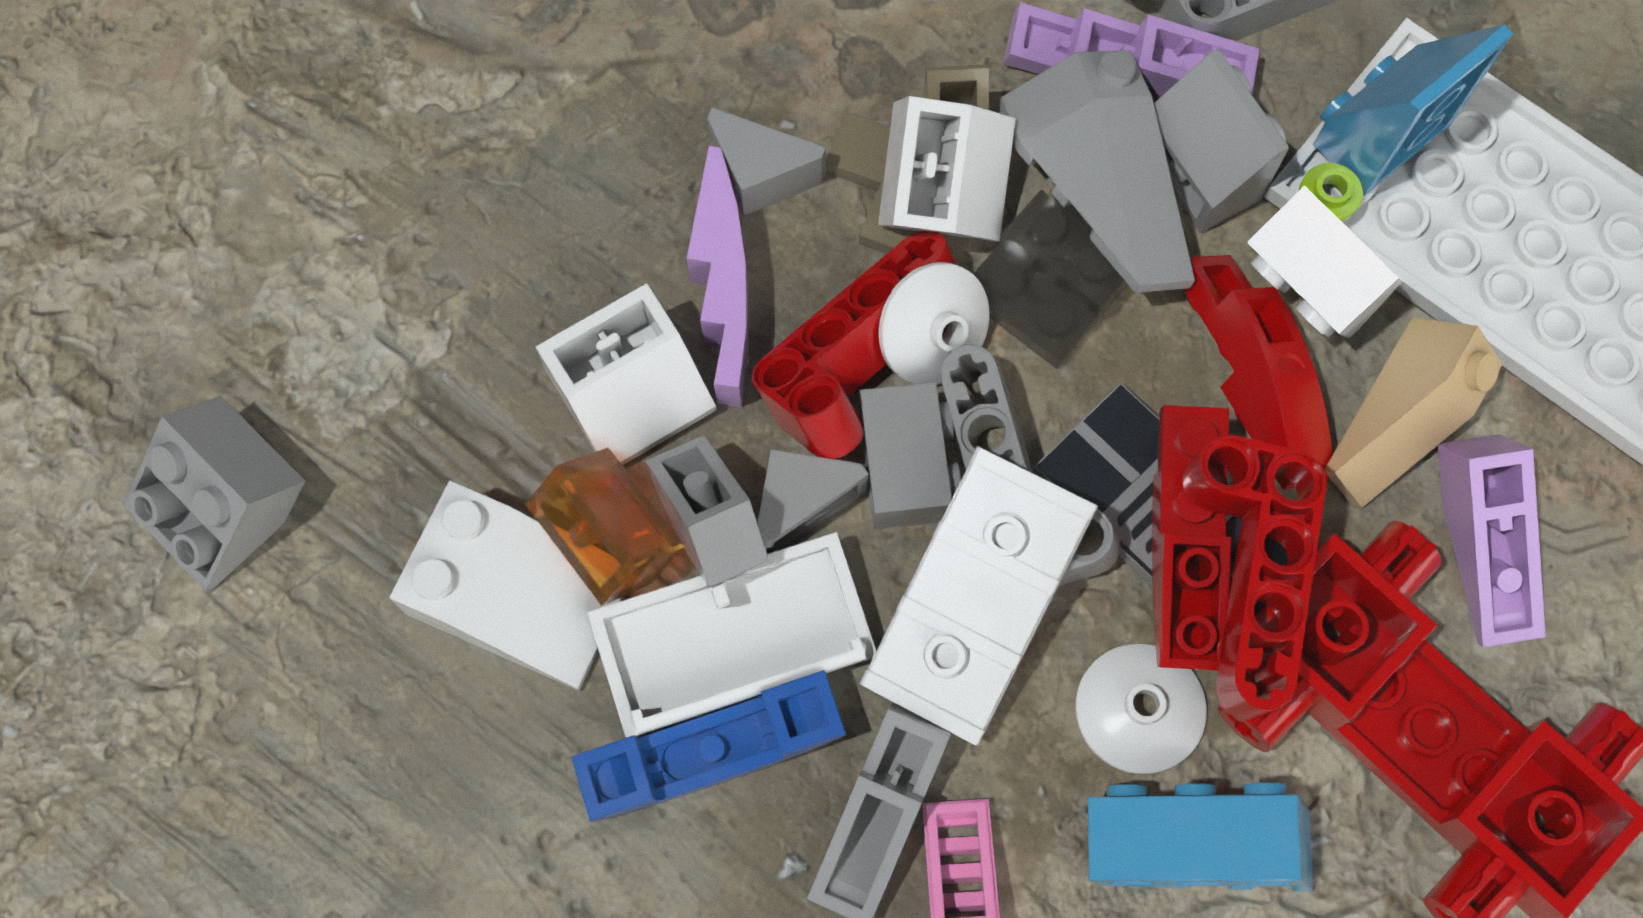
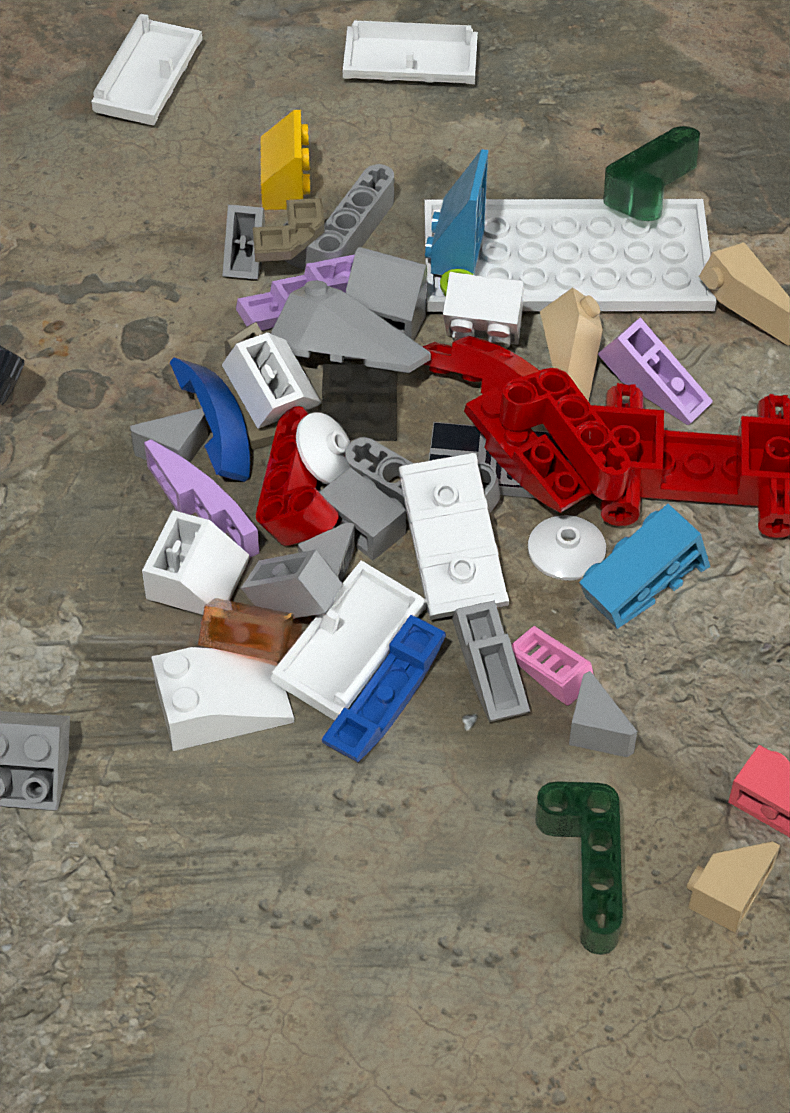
camera: 40 degrees left, 20 degrees down
(846, 170) = (229, 444): none -> blue slope

